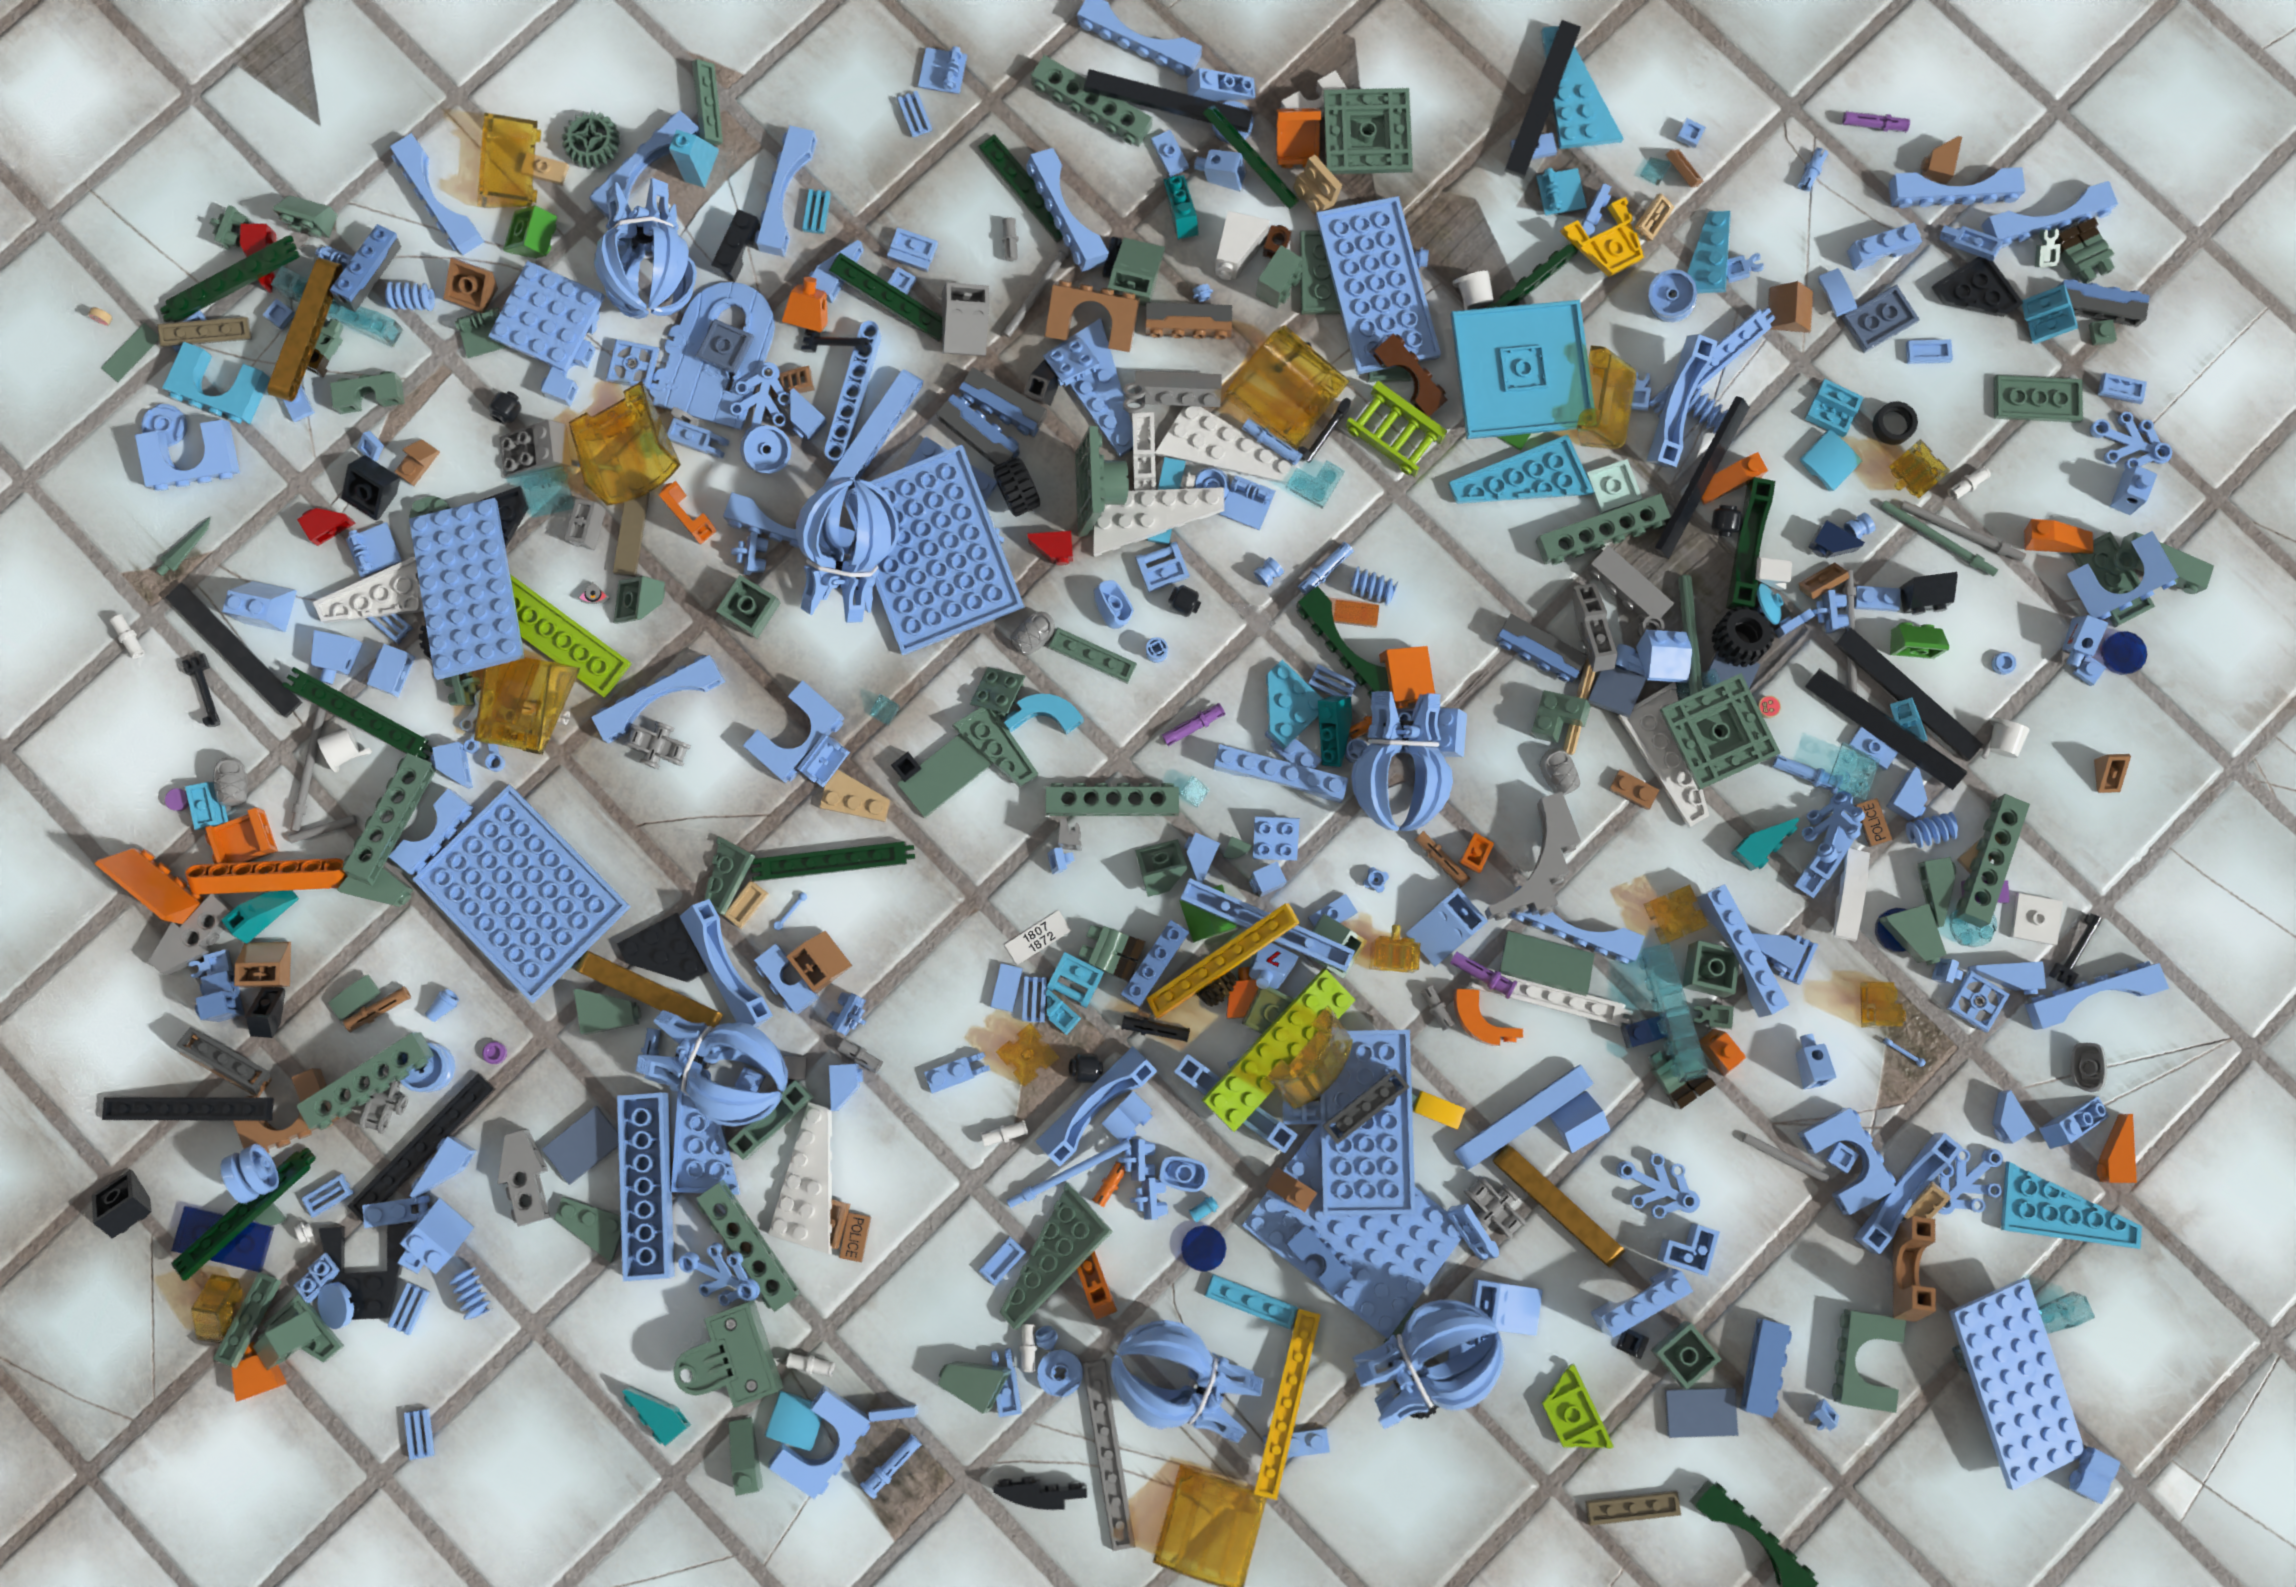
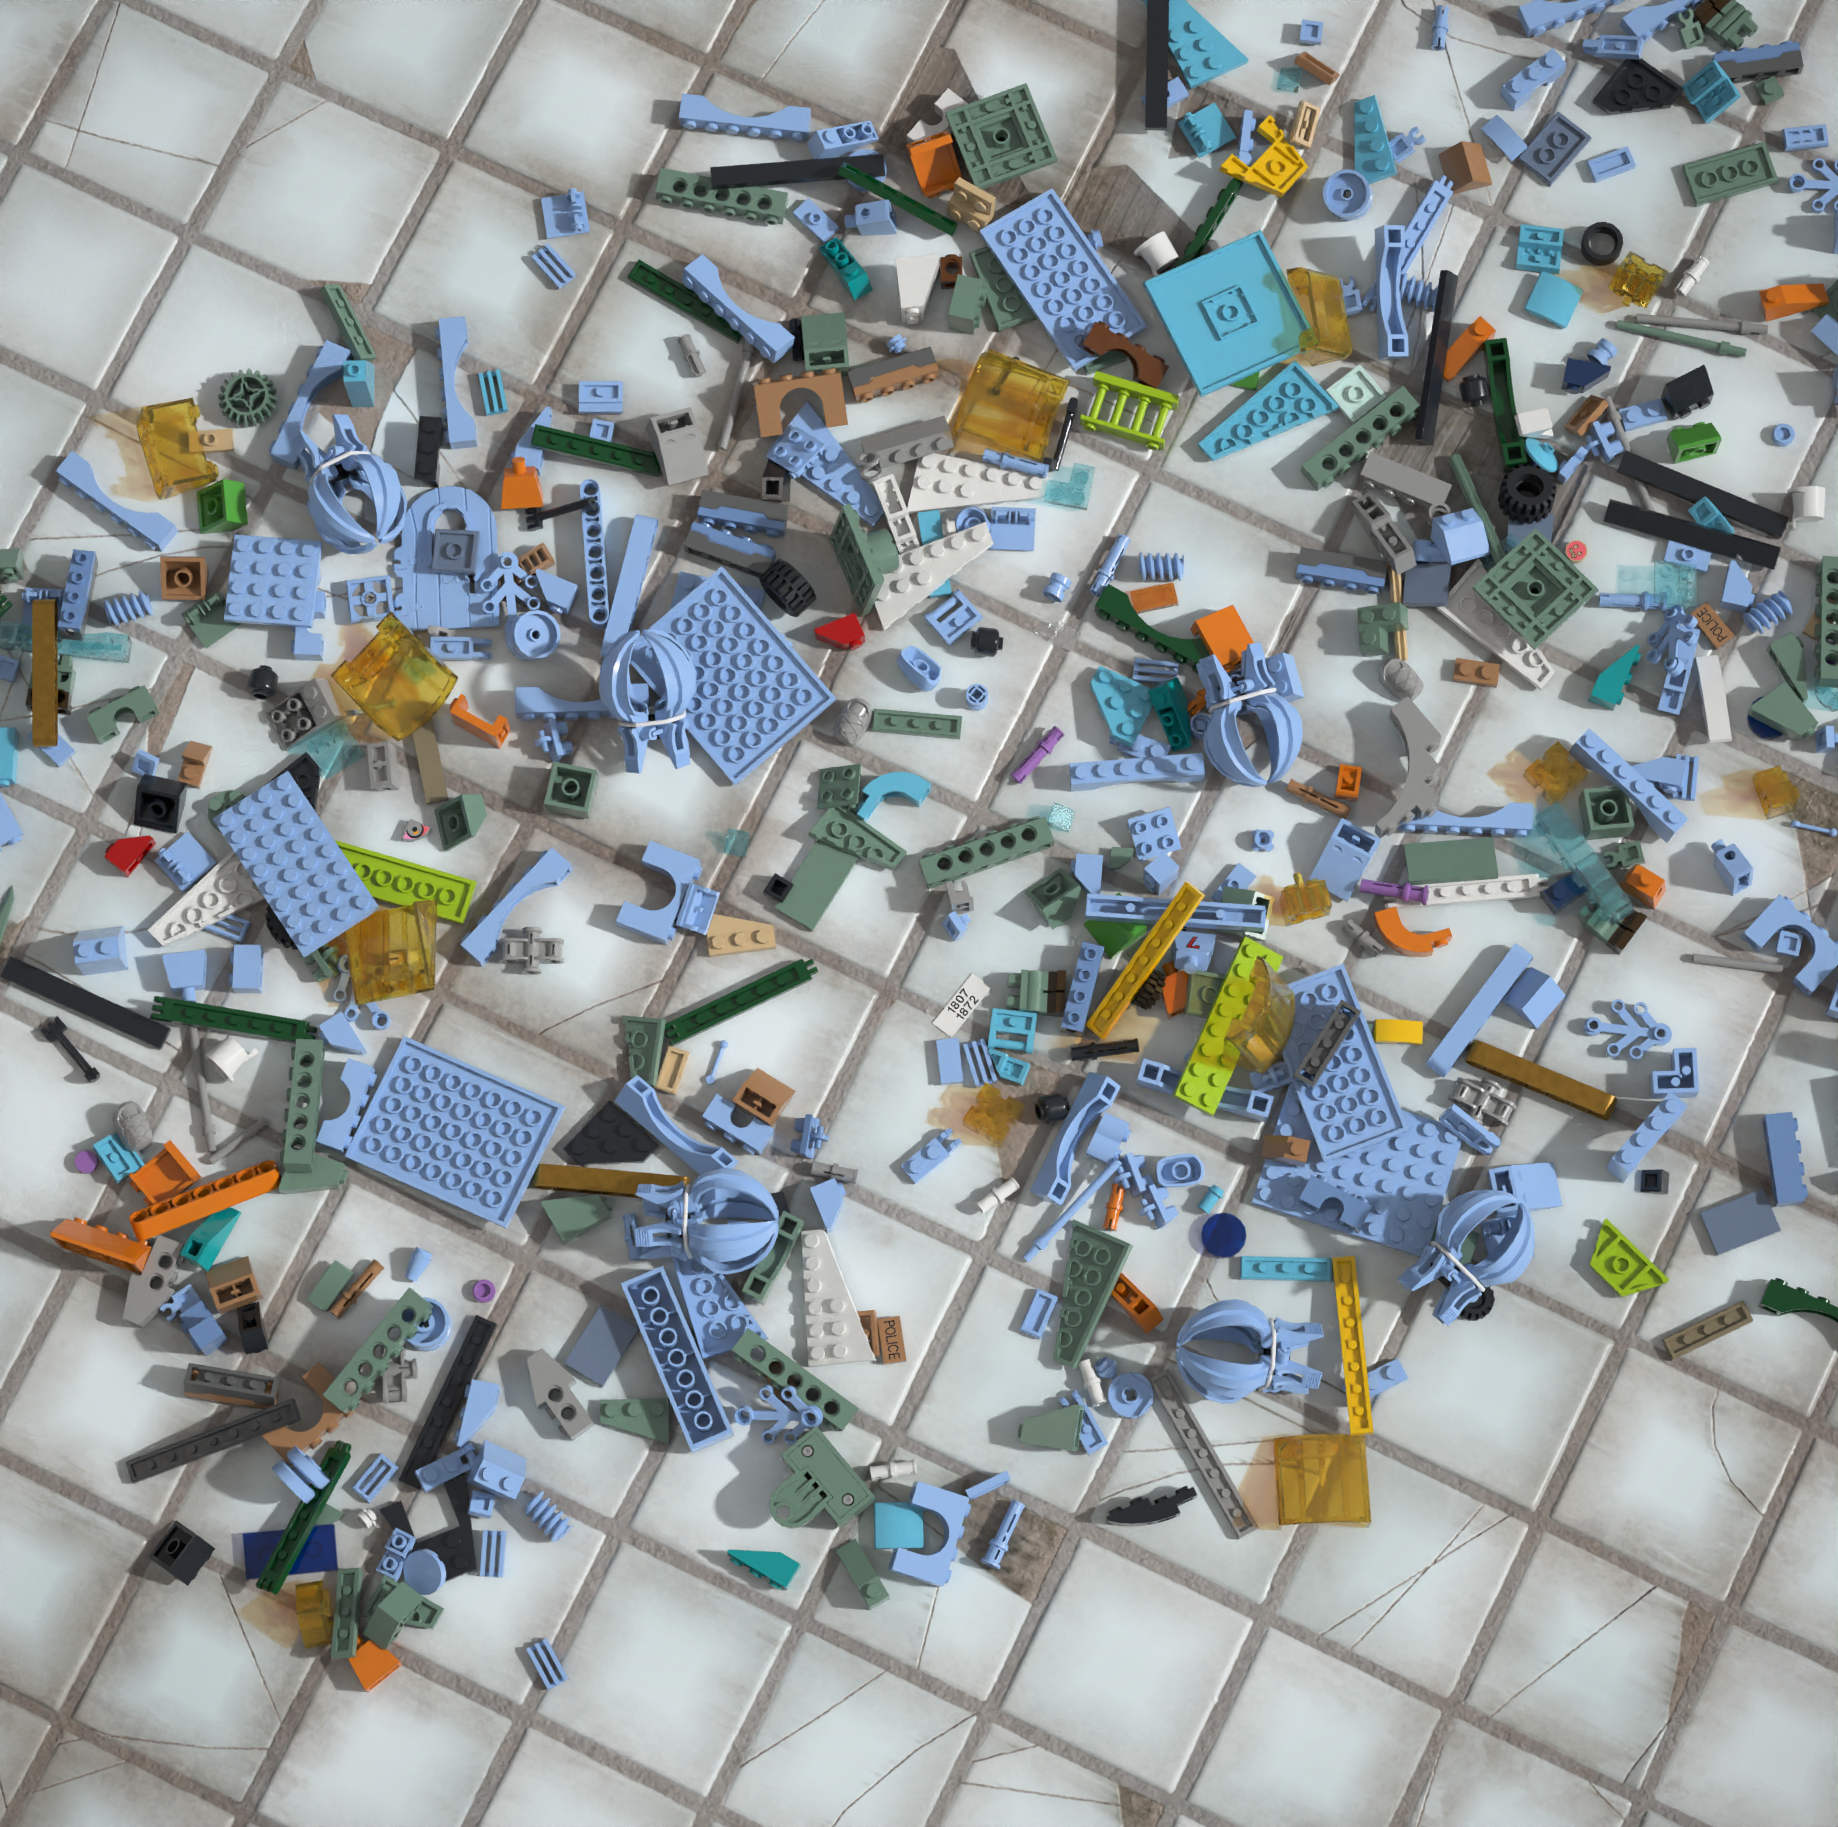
camera: 15 degrees left, 5 degrees down
(1686, 1354) = (1705, 1172): sand green brick -> none

